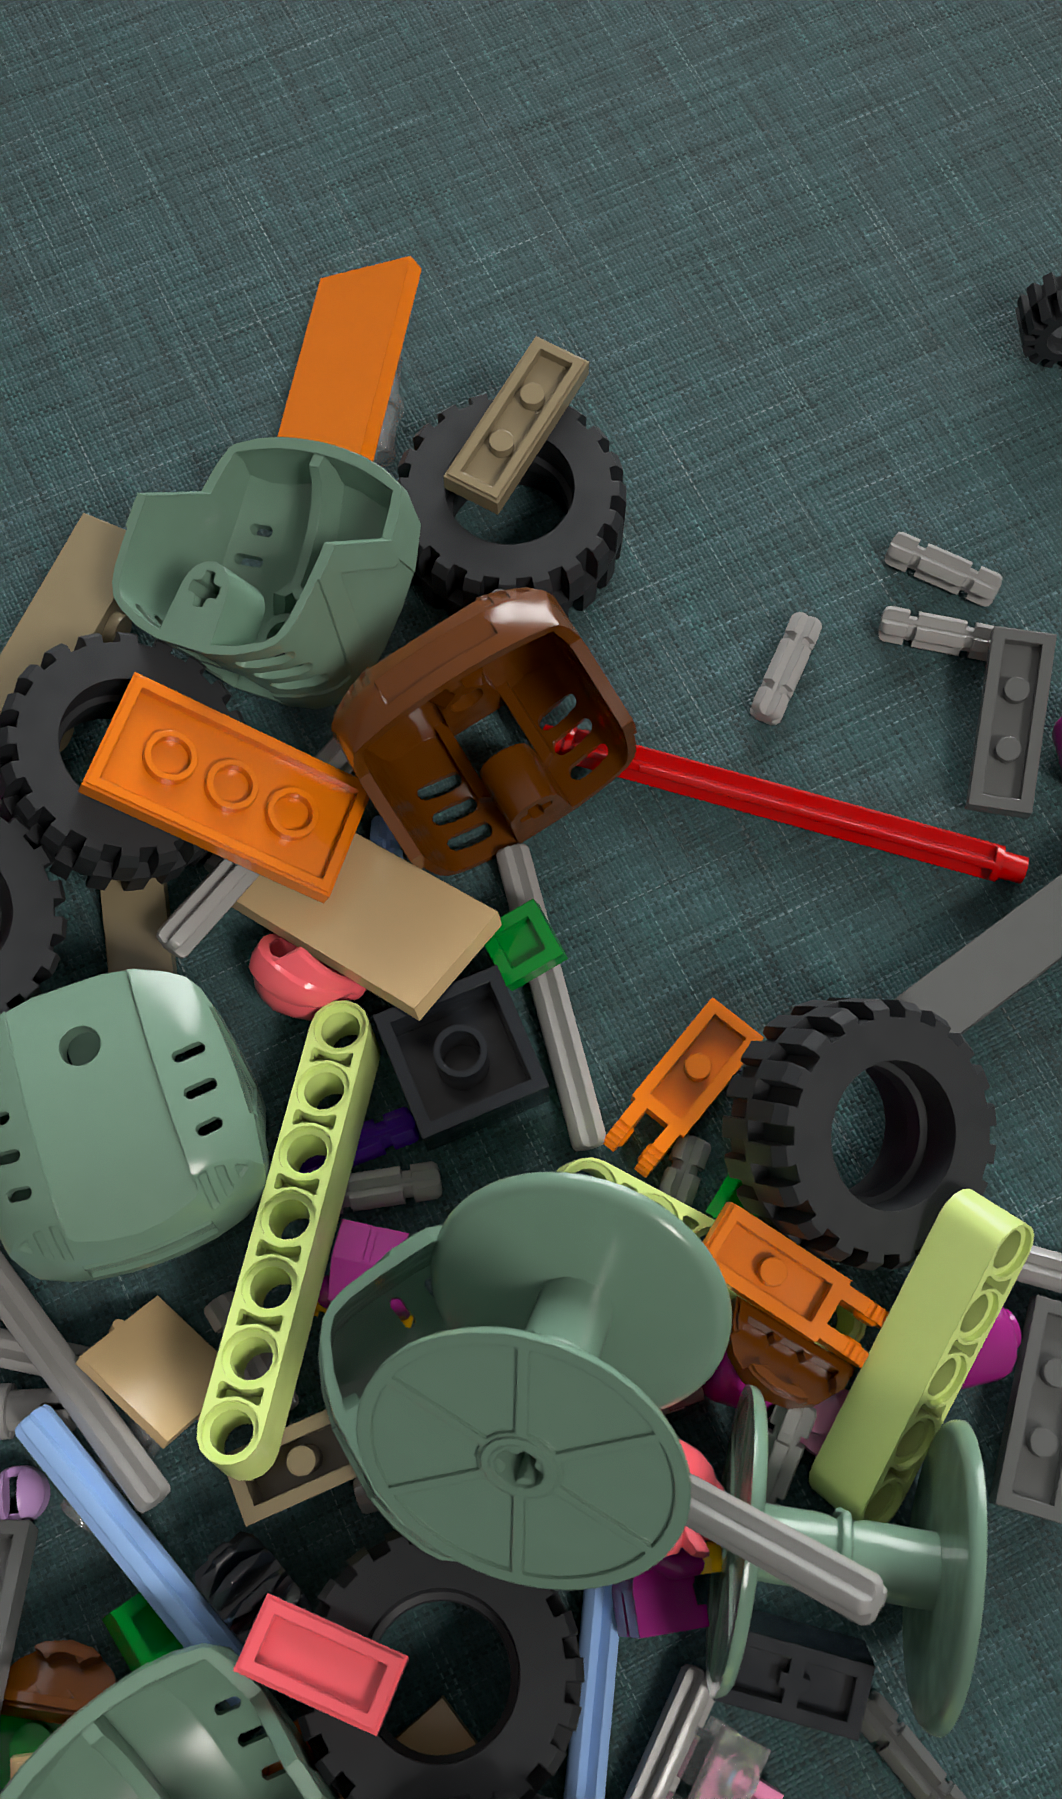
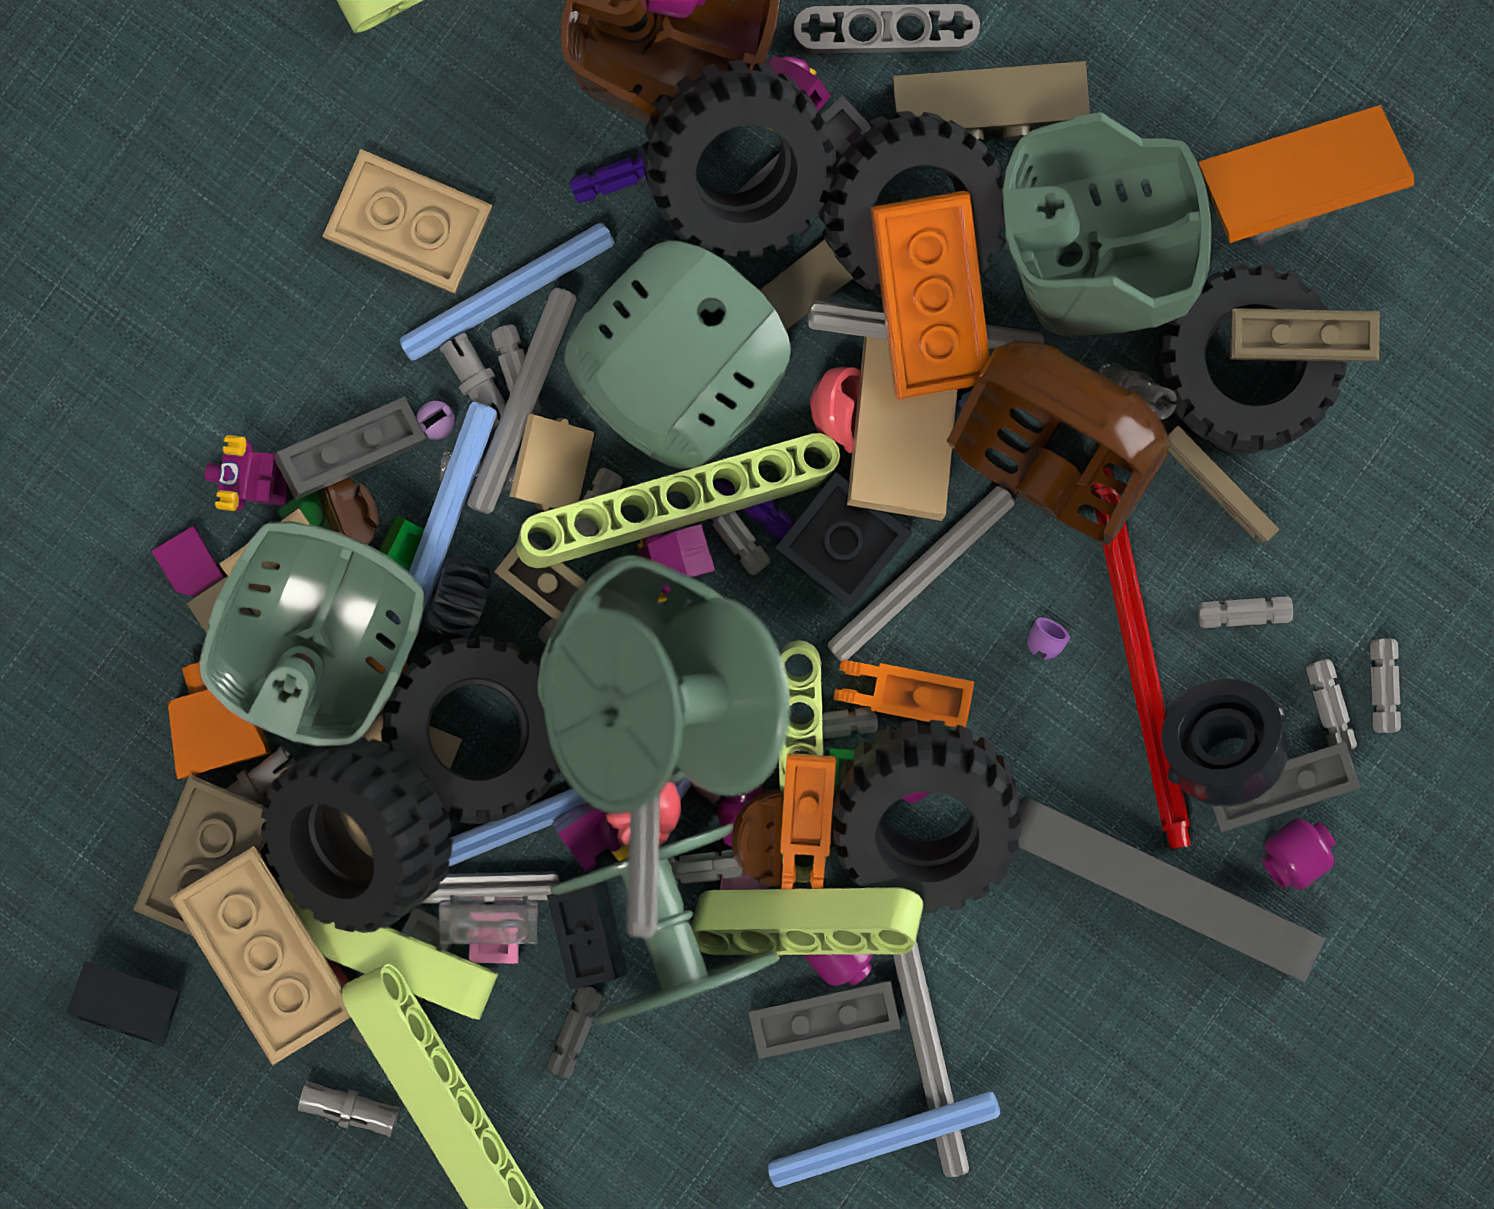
camera: 65 degrees right, 15 degrees up
(321, 1664) = (448, 659): coral tile -> none
(525, 945) = (939, 542): green plate -> none
(648, 614) = (1220, 486): none -> dark tan tile
(704, 892) = (1047, 638): none -> medium lavender hinge
(905, 717) = (1217, 713): none -> black piece

